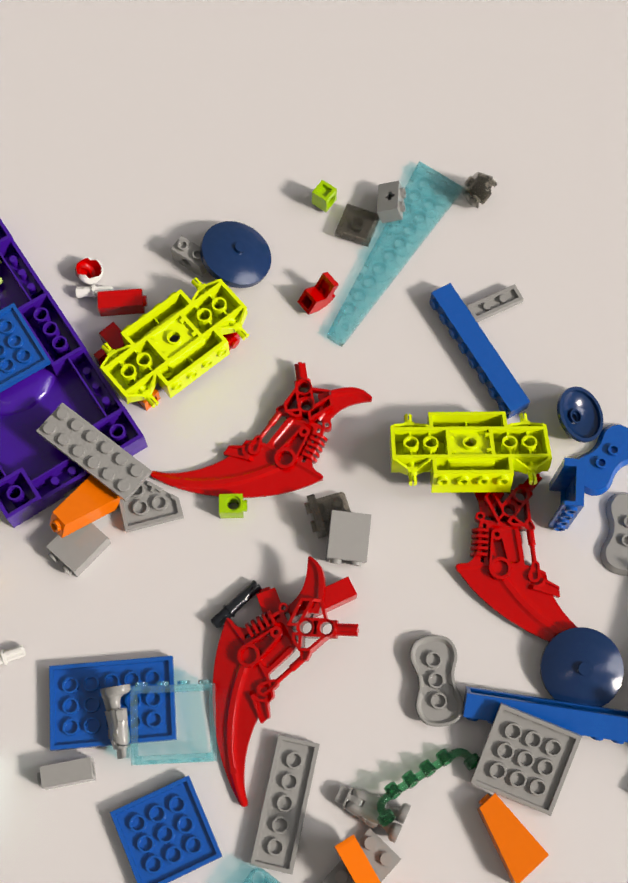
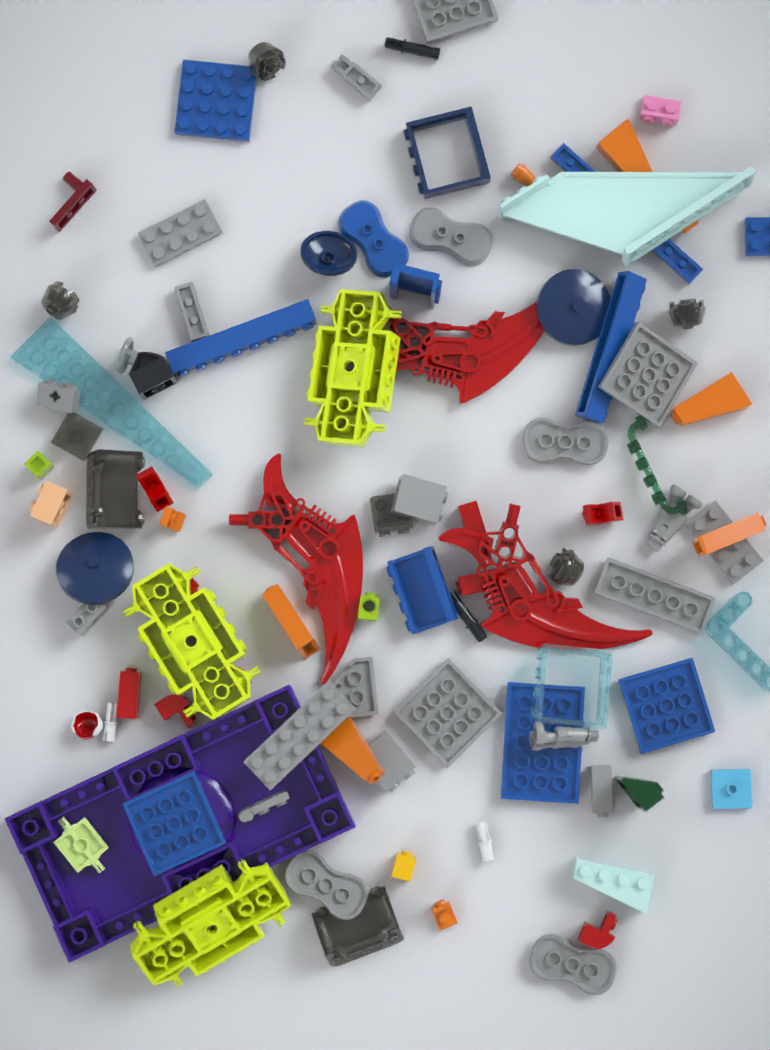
camera: 80 degrees left, 15 degrees up
(23, 433) = (262, 806): none -> light grey hinge
(66, 812) = (641, 791): none -> dark green slope
(134, 600) = (448, 712): none -> light grey plate
(206, 434) = (290, 621): none -> orange slope
(256, 554) = (422, 590): none -> blue panel
(289, 209) = (51, 504): none -> light nougat brick
(292, 313) = (172, 519): none -> orange bracket
(299, 699) = (566, 568): none -> clear smoke cone
(307, 260) = (113, 489): none -> clear smoke windscreen
(365, 730) = (602, 513): none -> red brick
(427, 270) = (148, 371): none -> black piece
(567, 284) = (180, 233): none -> light grey plate
(584, 196) = (82, 194): none -> dark red piece
(603, 794) = (687, 313): none -> clear smoke cone

